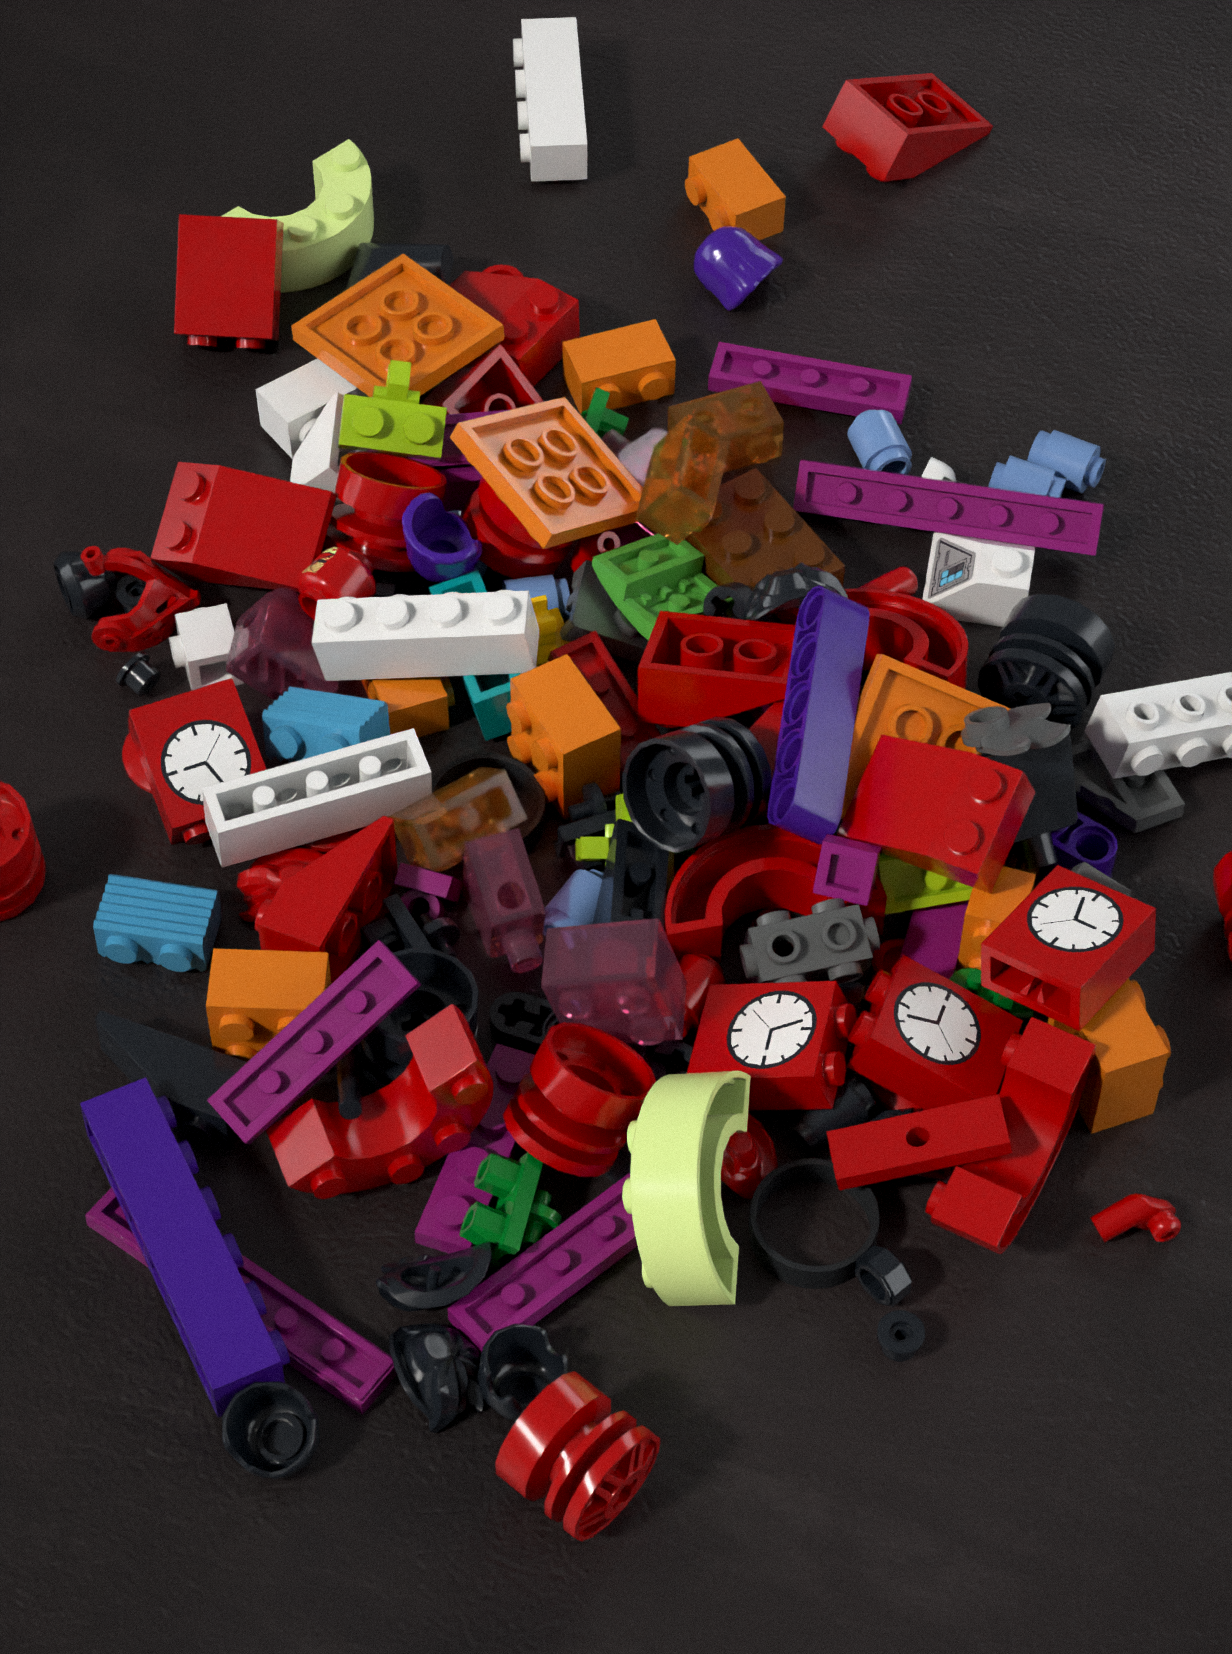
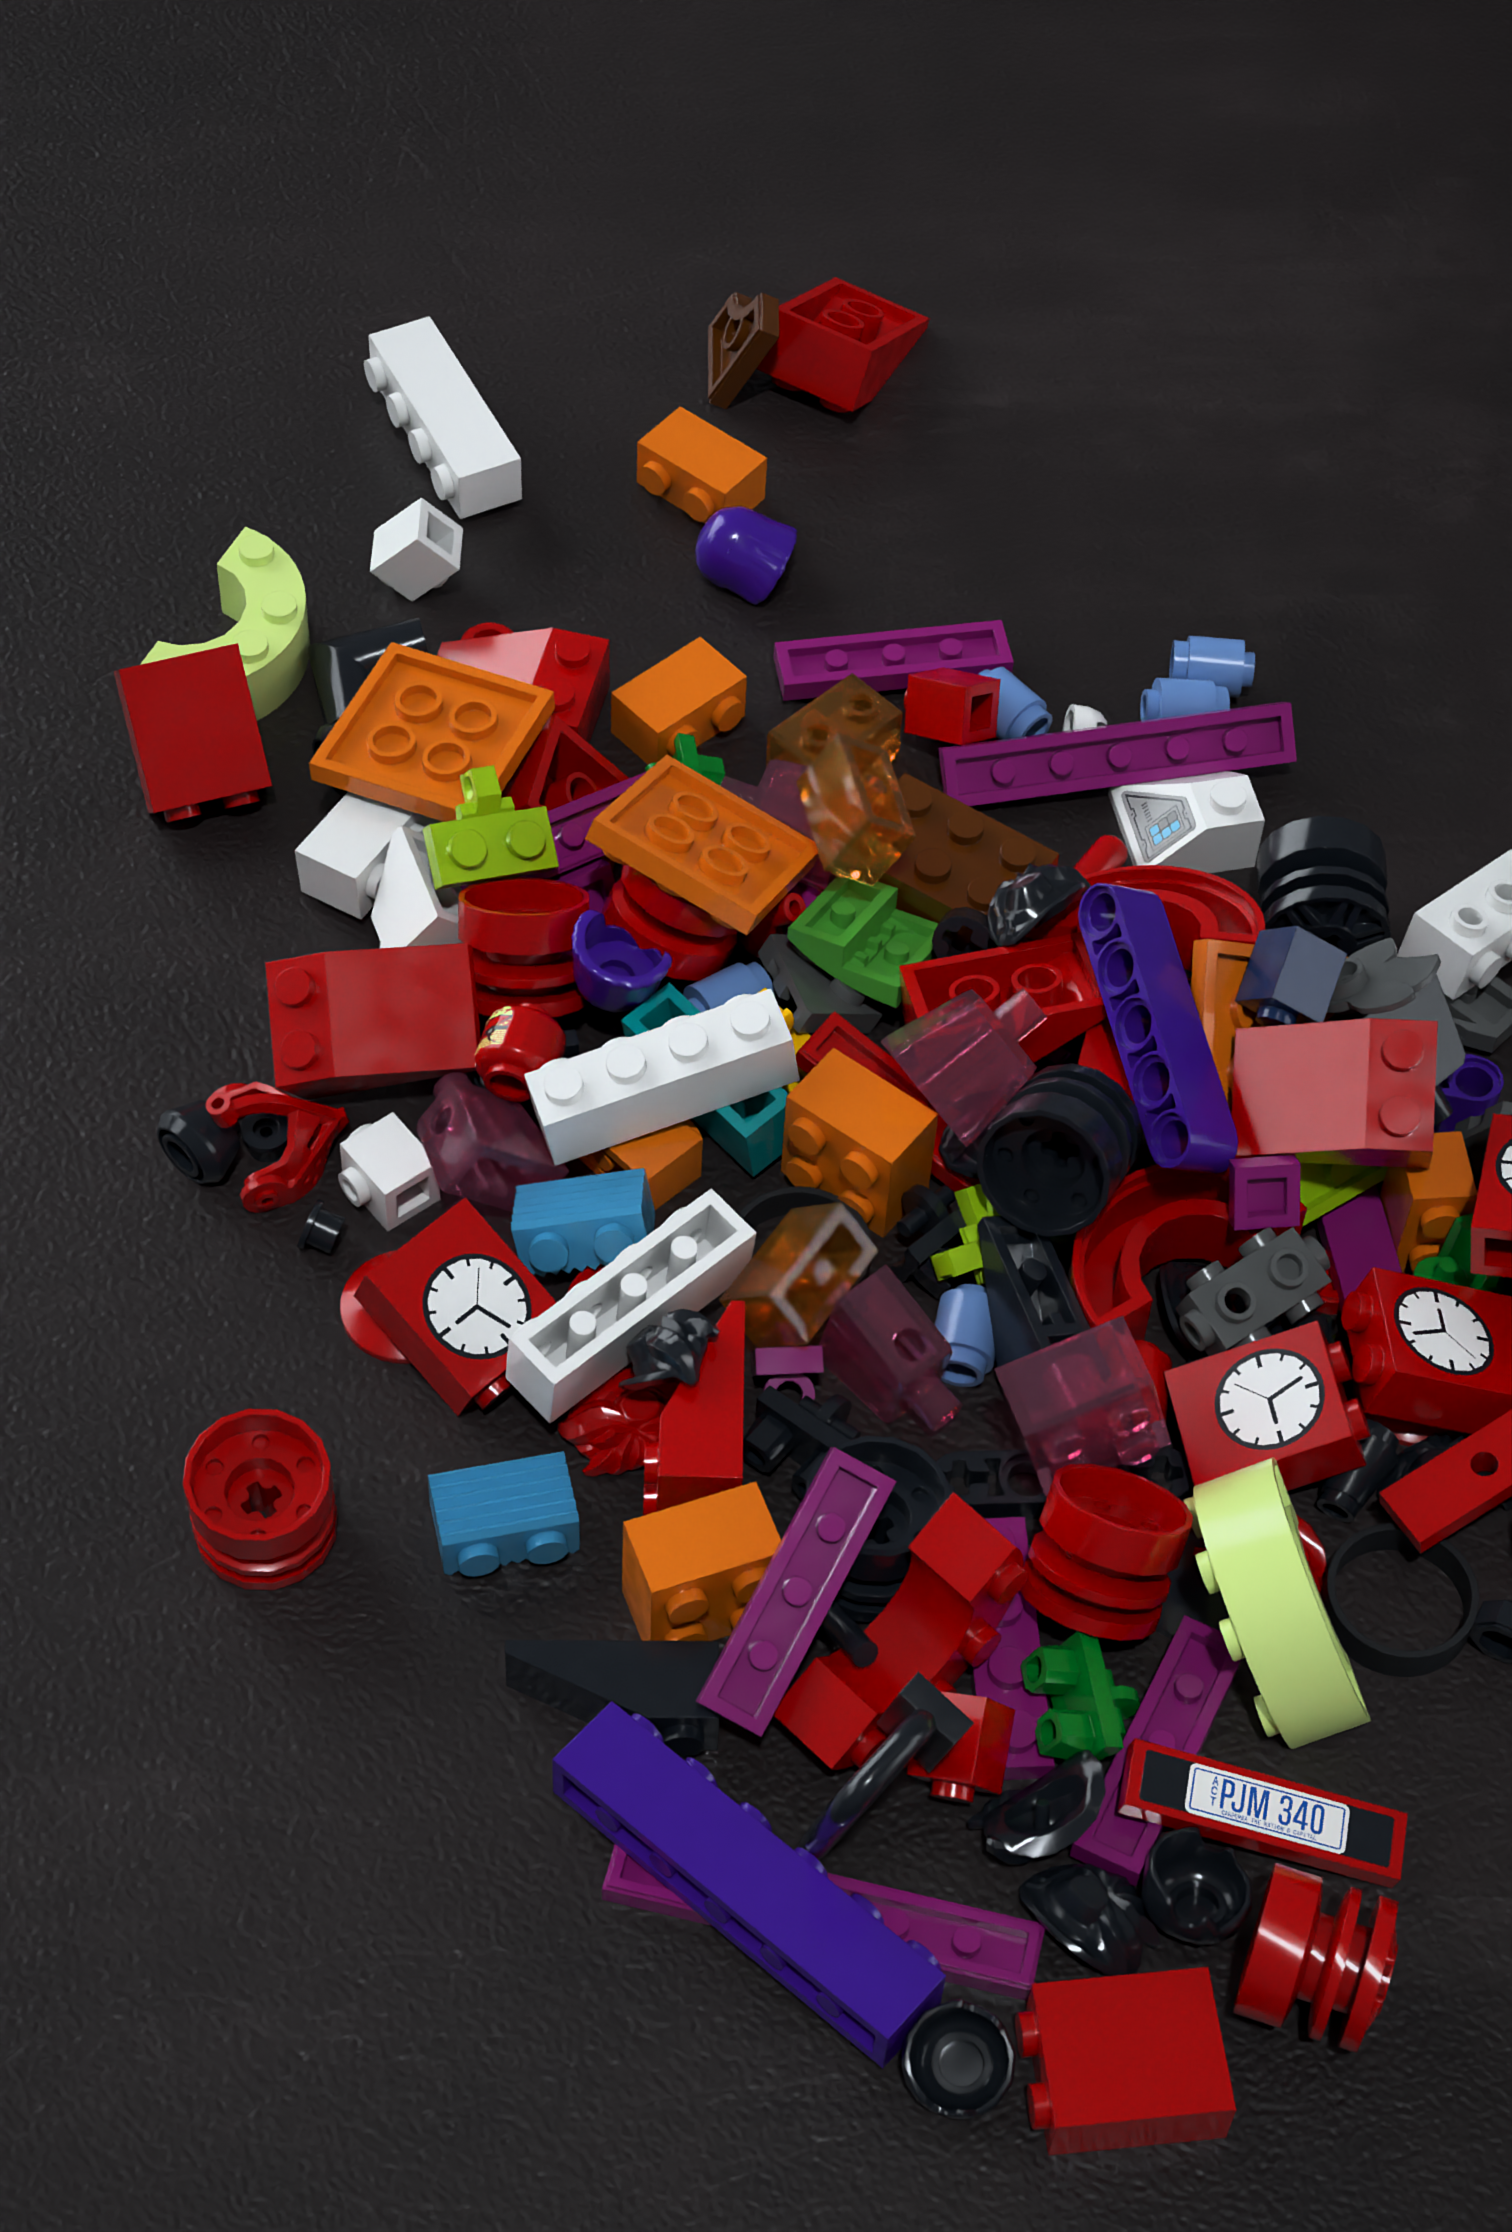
camera: 25 degrees left, 0 degrees up
(318, 836) = (669, 1350): none -> black hat
(337, 1175) = (920, 1727): none -> black bar
(398, 1204) = (978, 1757): none -> red brick
(400, 1480) = (1126, 2061): none -> red brick
(476, 194) = (416, 550): none -> white brick
(607, 1340) = (1263, 1813): none -> tile
(659, 688) = (968, 1057): none -> clear pink torso
(813, 105) = (738, 343): none -> reddish brown tile
(829, 429) = (952, 706): none -> red brick
(939, 706) = (1290, 977): none -> dark blue brick

